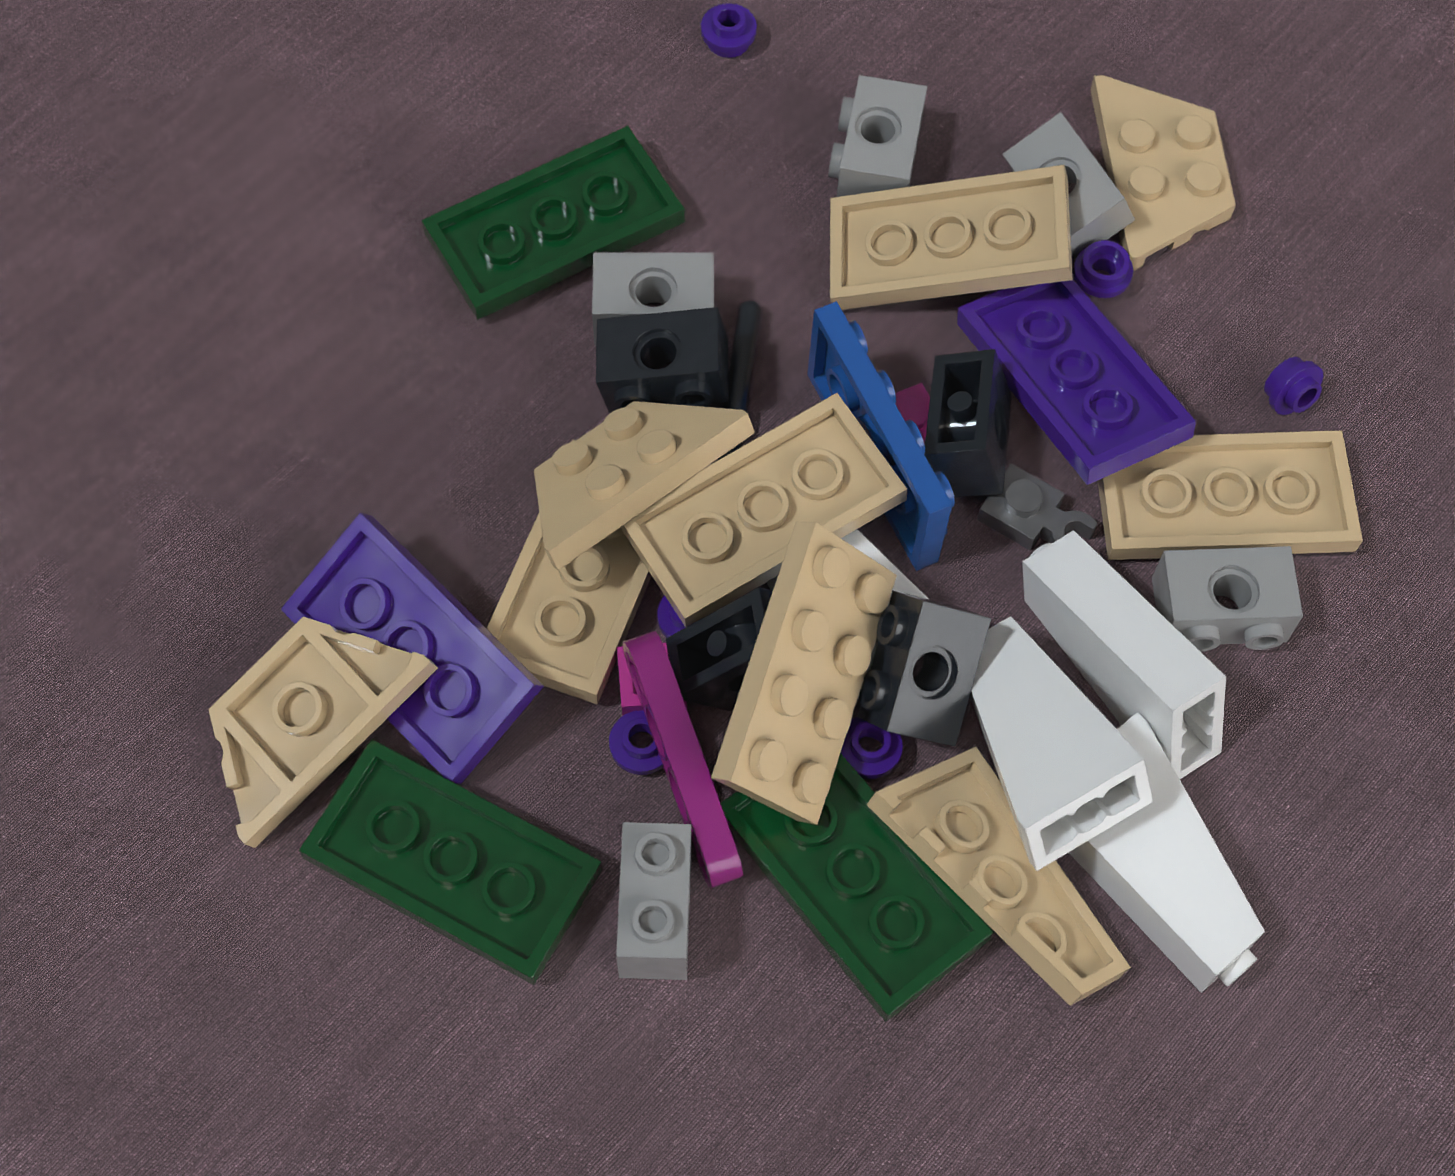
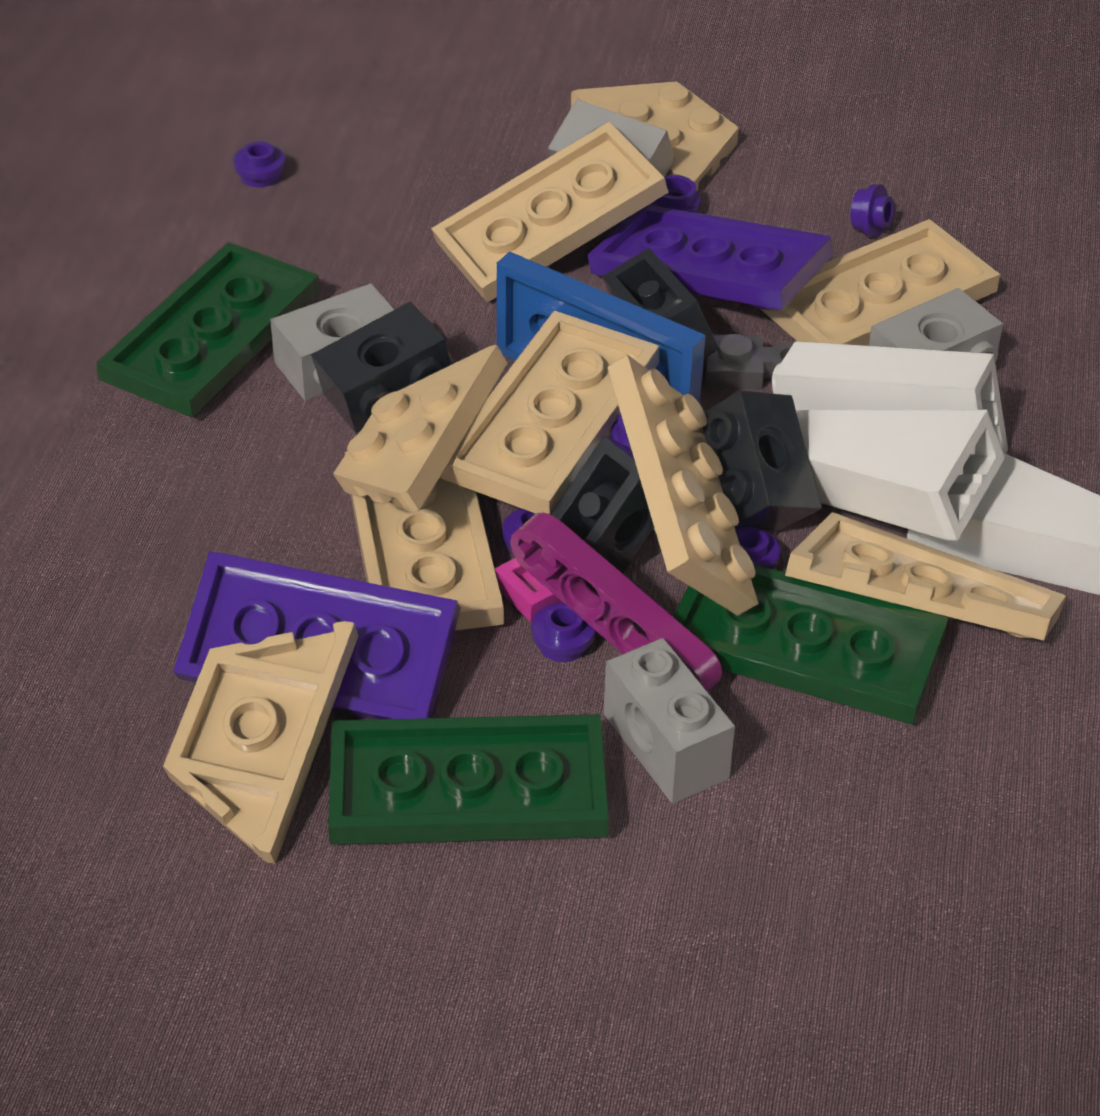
camera: 30 degrees left, 20 degrees down
(880, 136) = (437, 176): light grey brick -> none

